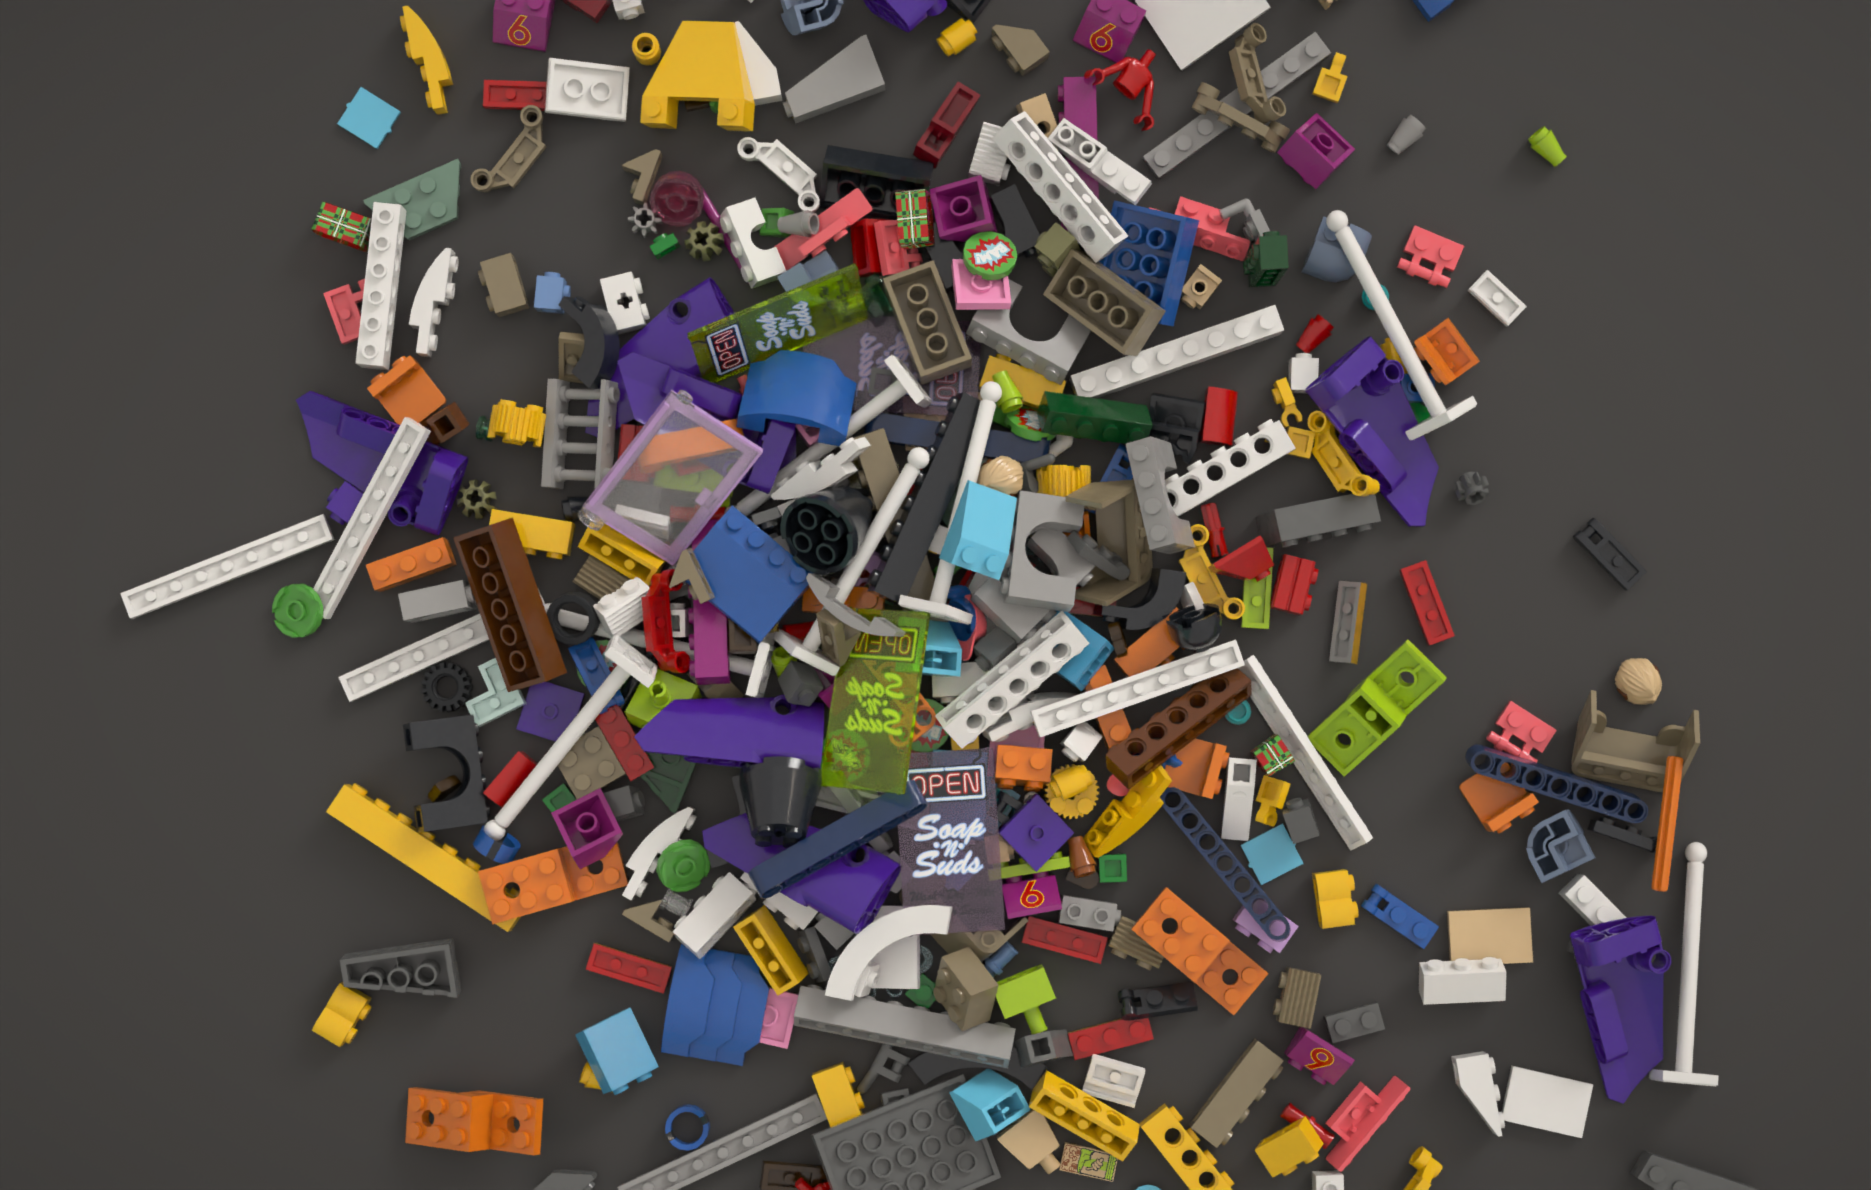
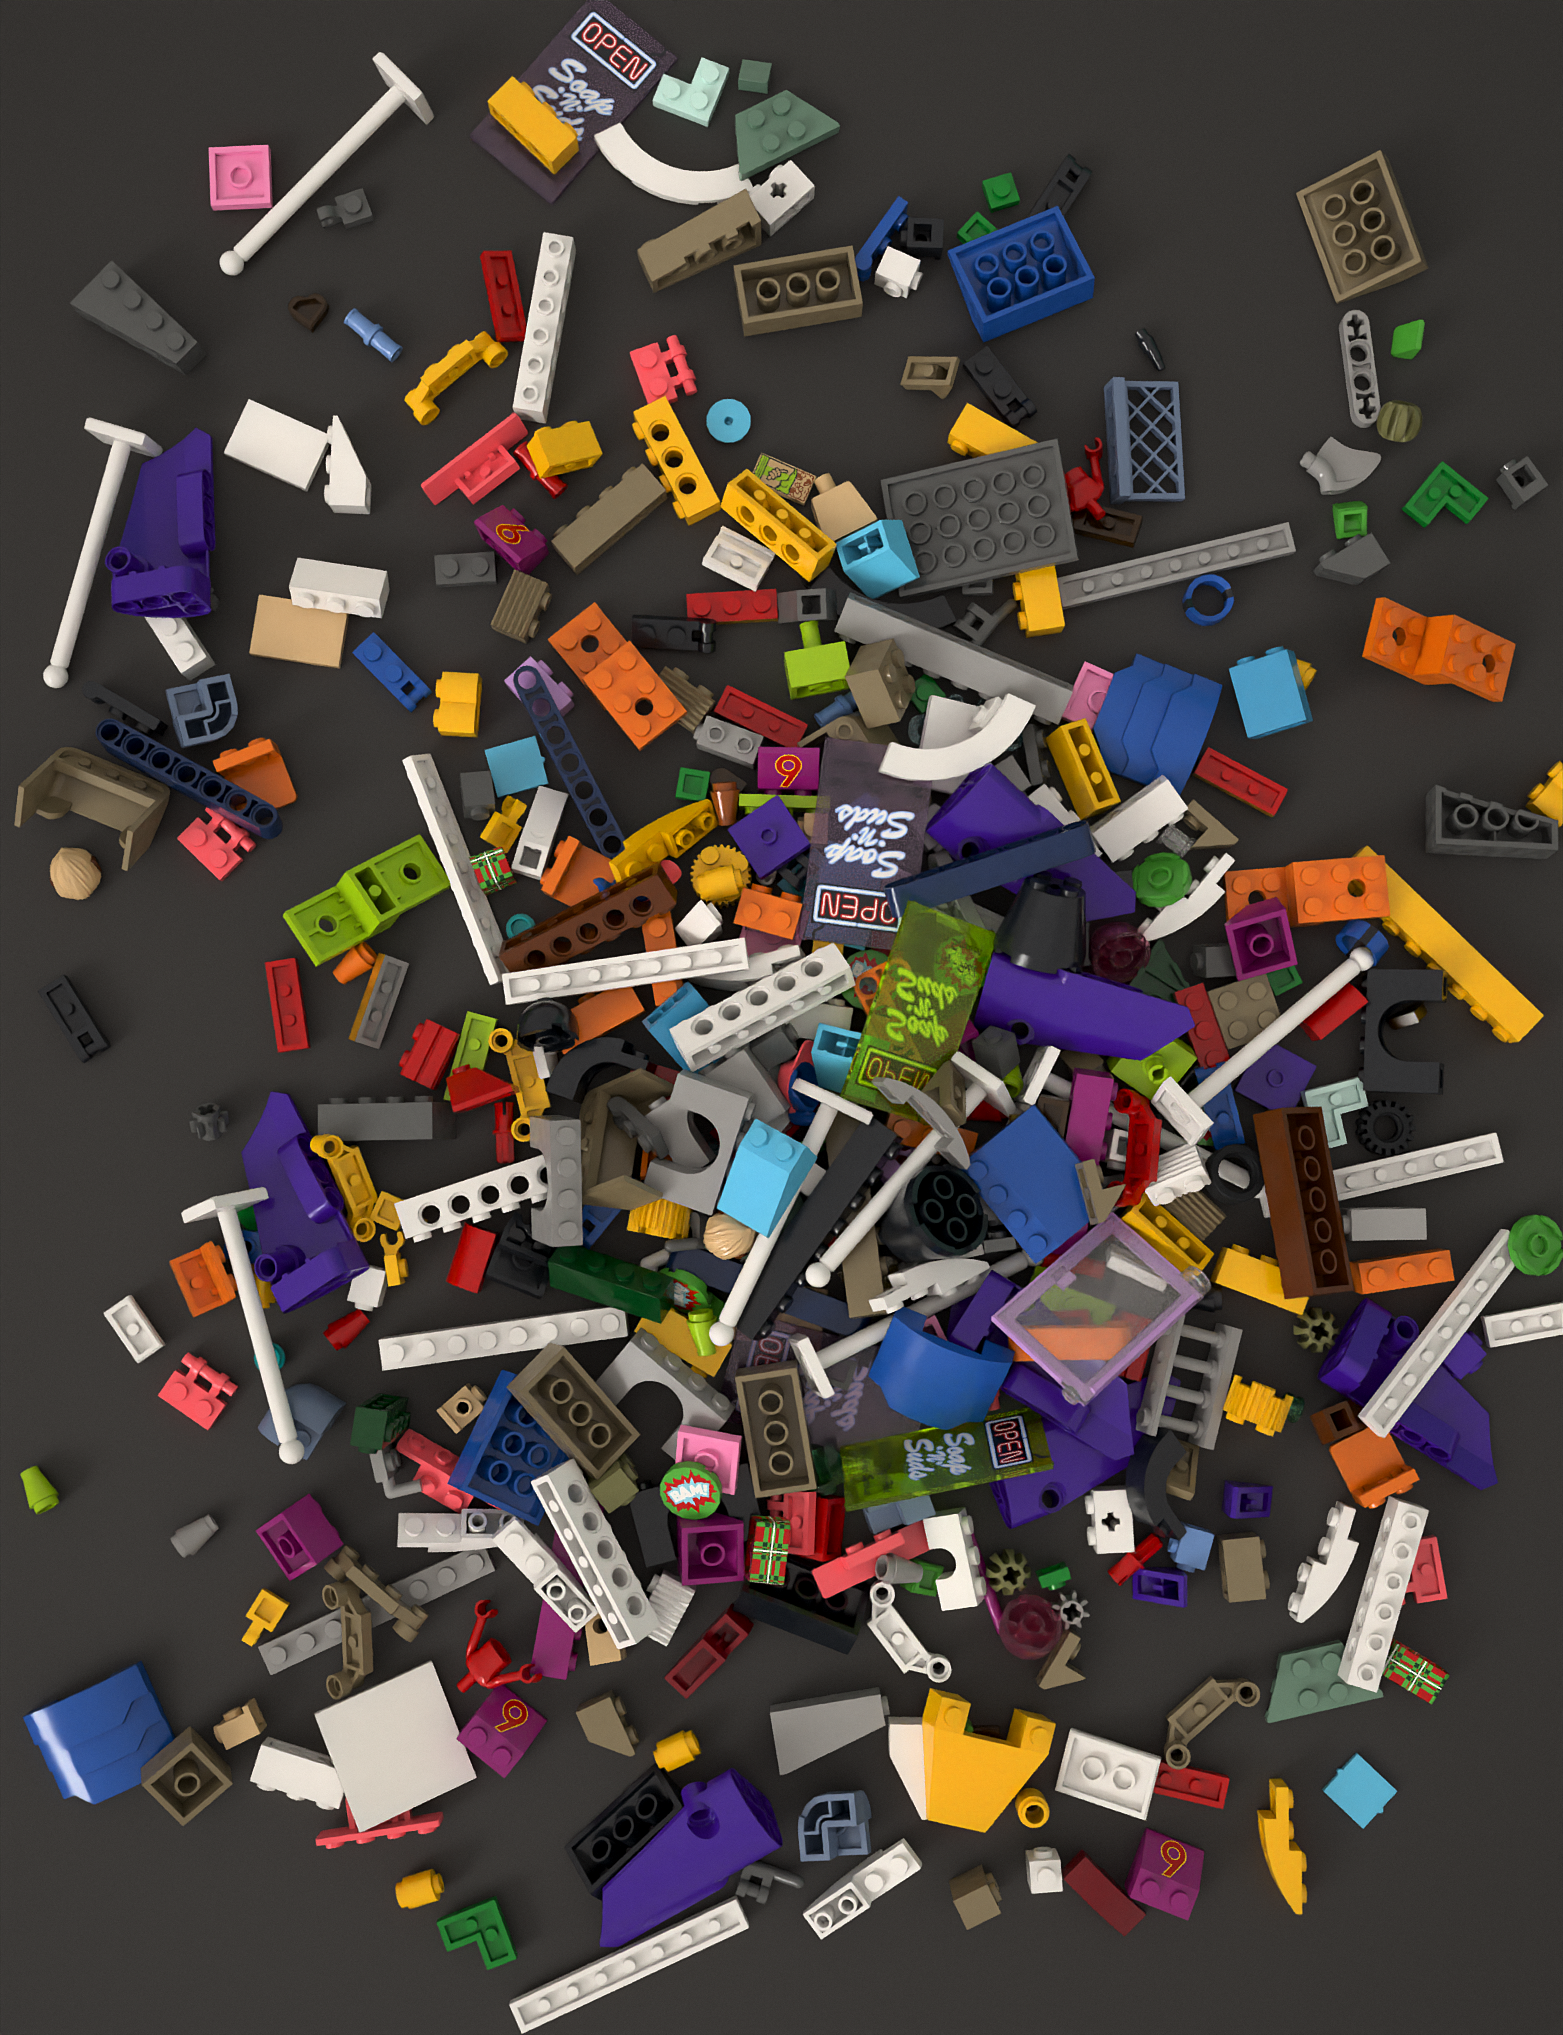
camera: 170 degrees left, 0 degrees up
(509, 342) = (1246, 1500): none -> dark purple slope
(571, 255) = (1161, 1586): none -> dark purple slope
(596, 272) = (1134, 1560): none -> red axle
(709, 793) = (1118, 951): none -> clear pink cylinder
(1118, 639) = (635, 1030): dark brown tile -> none
(1186, 181) = (451, 1532): none -> white slope
(1375, 651) = (355, 963): none -> orange cone
(1667, 823) = (77, 710): orange axle -> none

